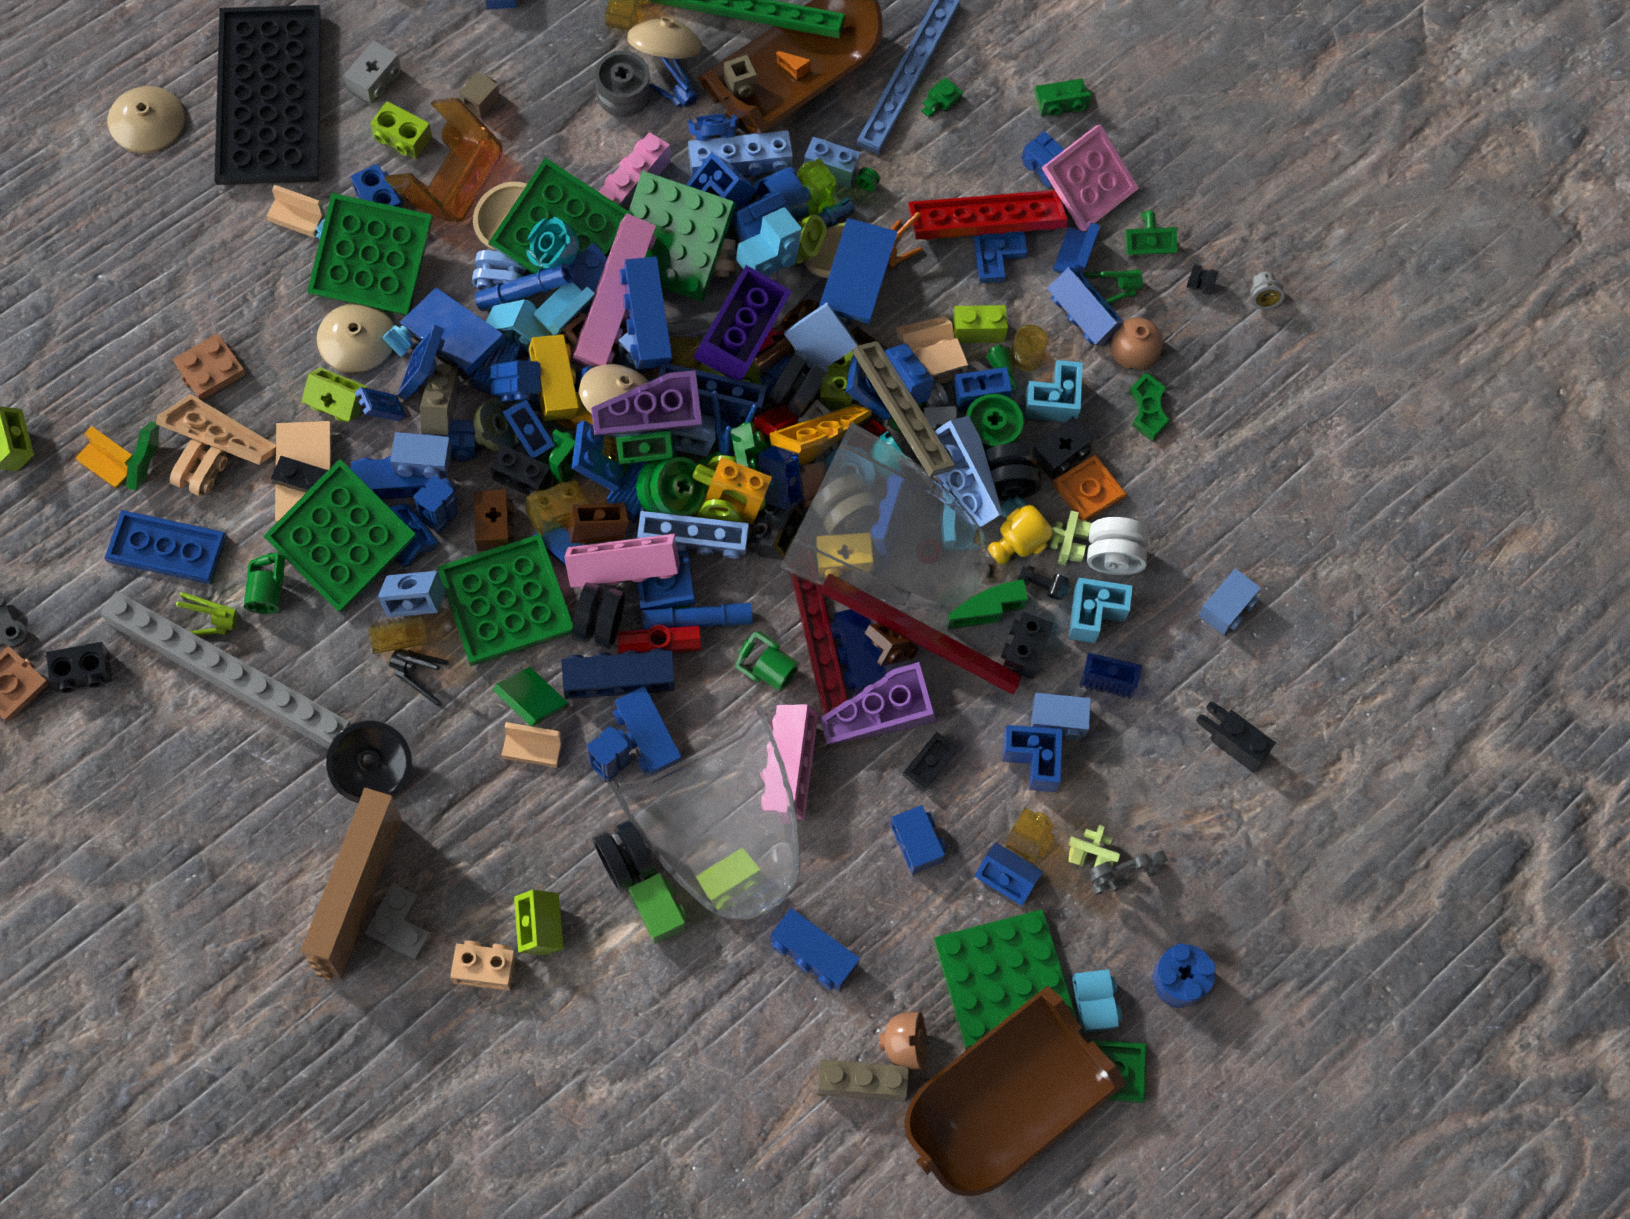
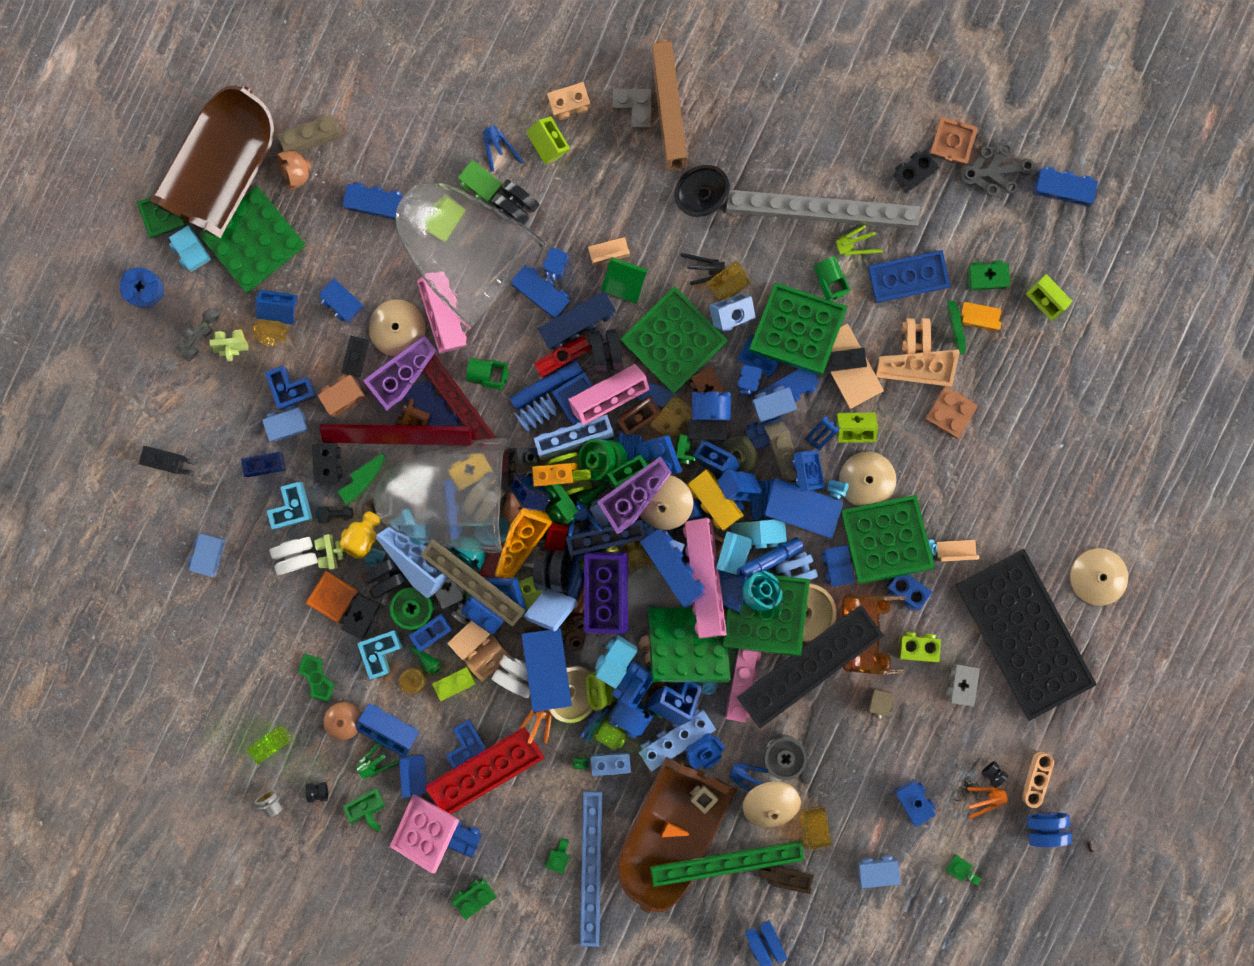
camera: 165 degrees right, 20 degrees up
(66, 499) = (978, 281): none -> green brick
(446, 255) = (838, 566): none -> blue brick
(500, 481) = (711, 406): none -> blue brick
(518, 154) = (817, 662): none -> black plate
(610, 967) = (492, 137): none -> blue plant
(726, 585) = (537, 413): none -> medium blue piece
(856, 793) = (410, 321): none -> tan dish
(902, 295) = (514, 678): none -> white wheel
(969, 712) = (342, 395): none -> nougat brick
(1238, 352) = (269, 744): none -> clear neon green brick

